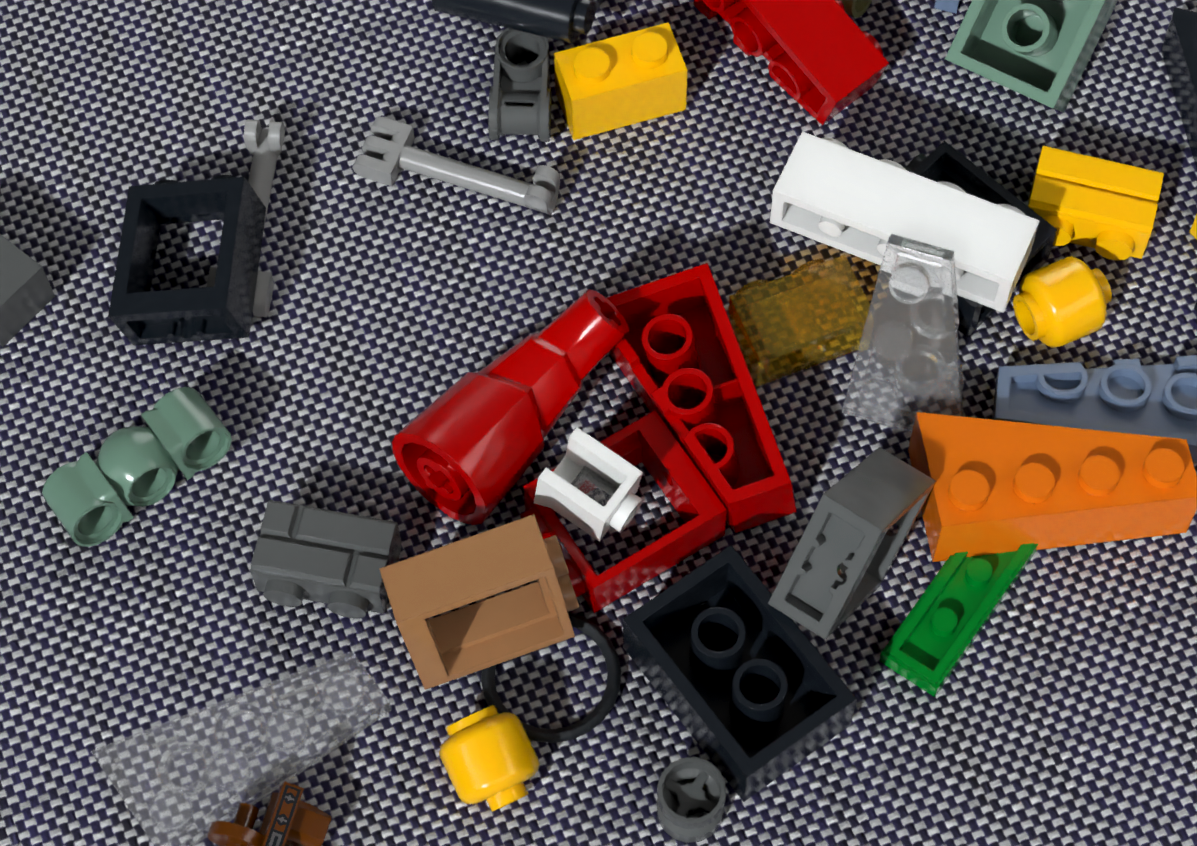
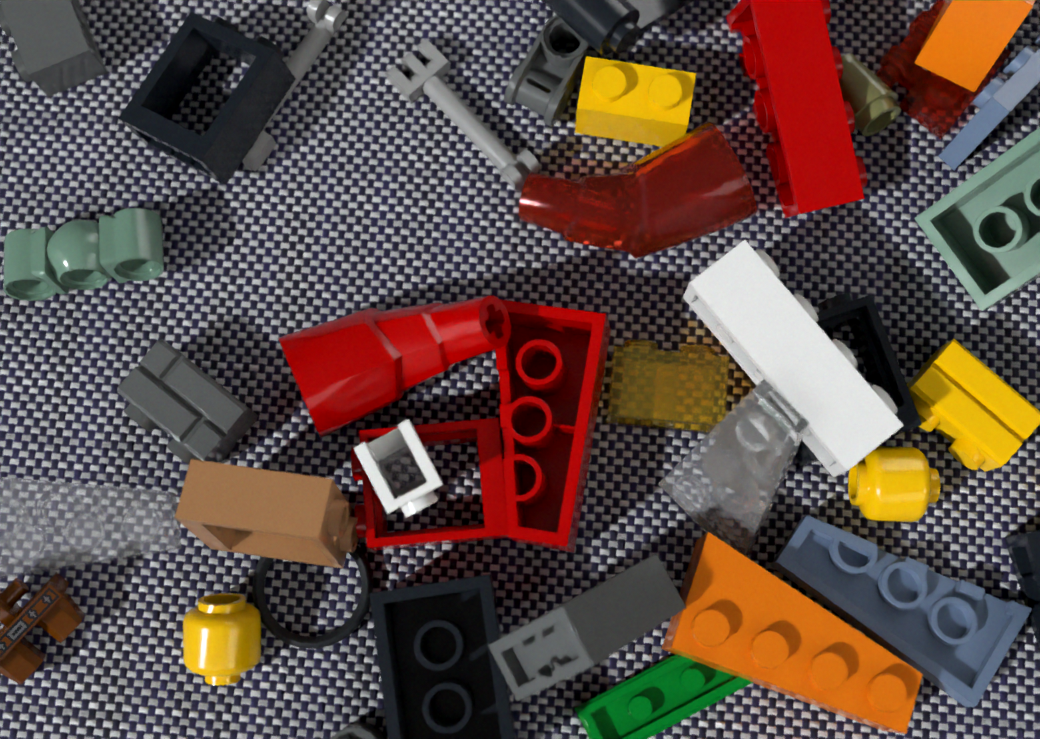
camera: 30 degrees right, 15 degrees up
(690, 158) = (652, 203): none -> clear red piece

